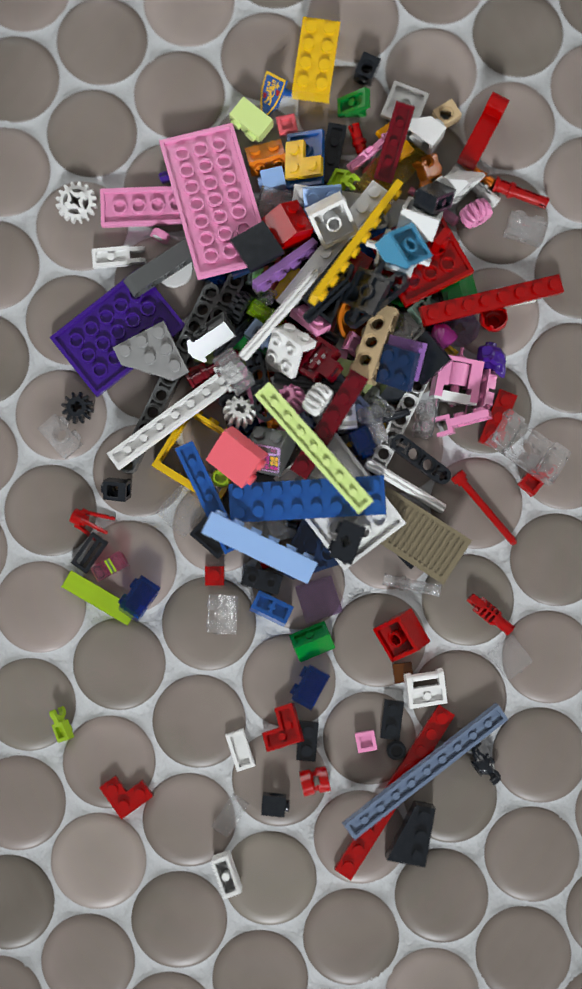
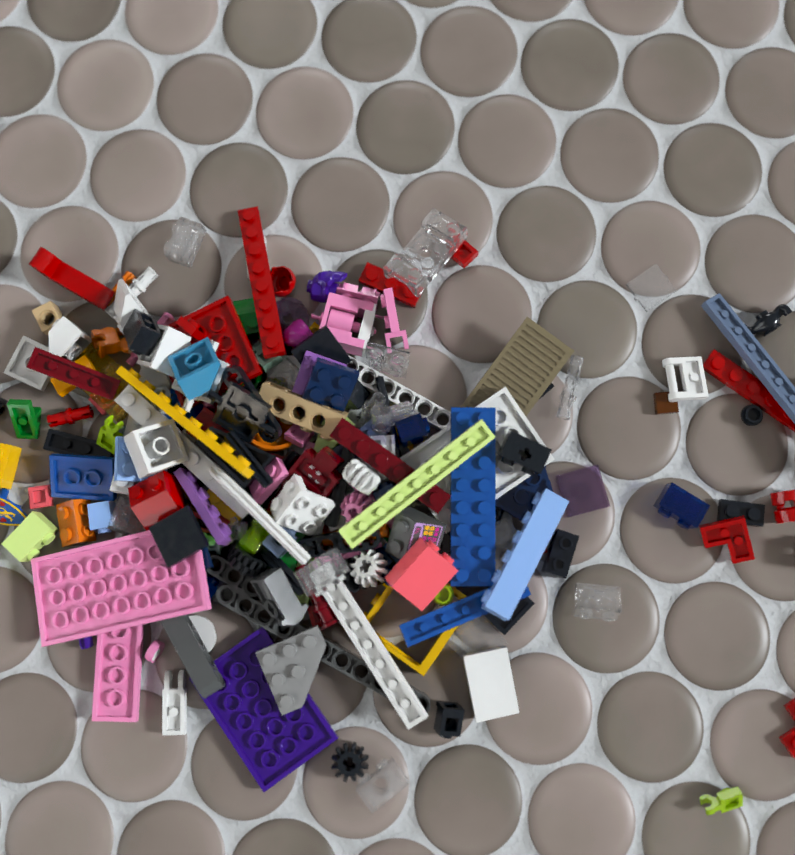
camera: 85 degrees left, 5 degrees down
(69, 207) = (100, 741): white gear -> none
(80, 519) = (481, 764): red plant -> none
(95, 596) = (573, 746): lime tile -> none
(98, 539) = (505, 743): black tile -> none
(110, 566) = (538, 732): clear pink leg -> none
(139, 598) = (577, 698): clear blue brick -> none
(148, 524) = (490, 684): none -> white tile
(214, 575) = (552, 608): red plate -> none
(240, 750) = (750, 589): white tile -> none
(271, 608) = (592, 544): blue hinge -> none
(298, 165) = (89, 484): yellow plate -> none
(312, 641) = (629, 501): green panel -> none
(366, 154) = (83, 406): bright pink piece -> none
(366, 741) = (742, 447): bright pink plate -> none
(391, 719) = (717, 418): black plate -> none
(401, 635) = (626, 401): red slope -> none
(405, 486) = (461, 387): white axle -> none
(418, 461) = (430, 368): black beam -> none
(461, 480) = (455, 327): red piece -> none
(475, 213) = (162, 292): bright pink gear -> none
(490, 613) = (604, 305): red hinge -> none
(511, 190) = (140, 254): red pin -> none

